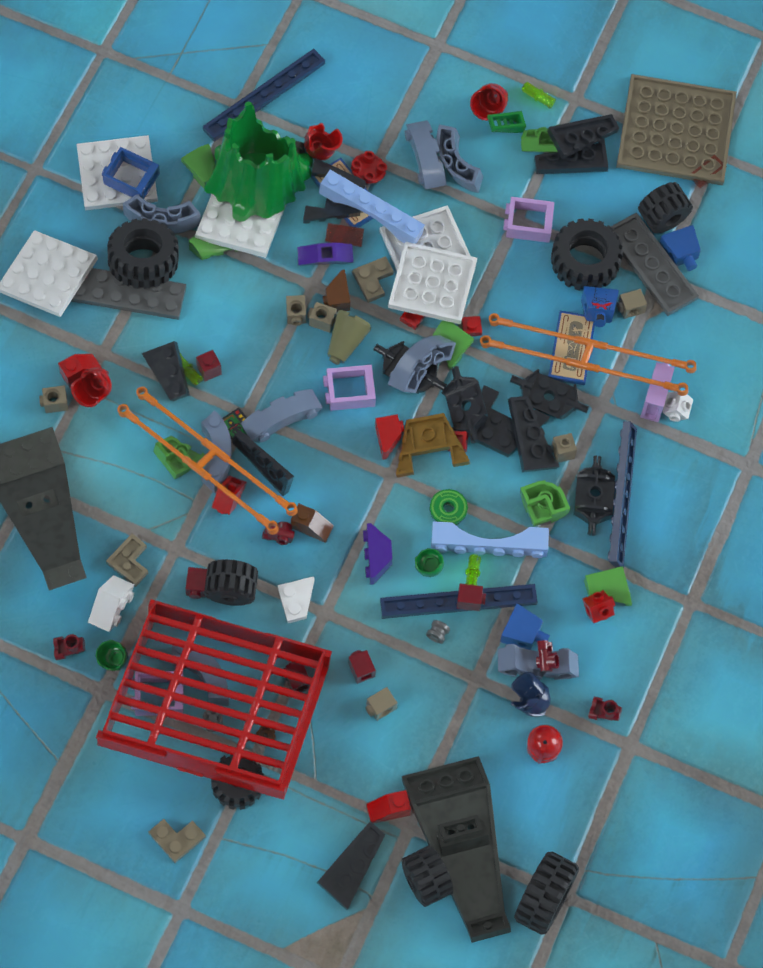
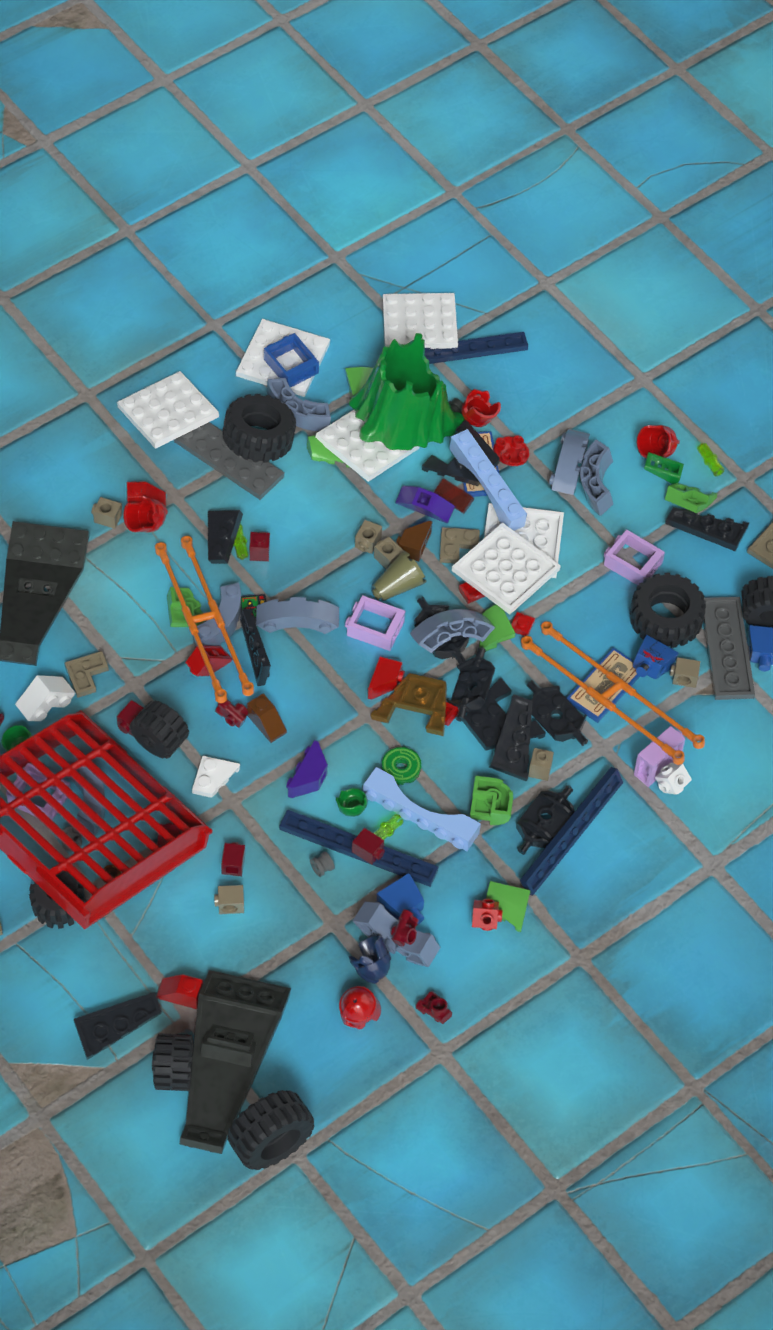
camera: 30 degrees right, 10 degrees down
(216, 80) = (421, 313): none -> white plate
(577, 135) = (727, 507): black wing -> none

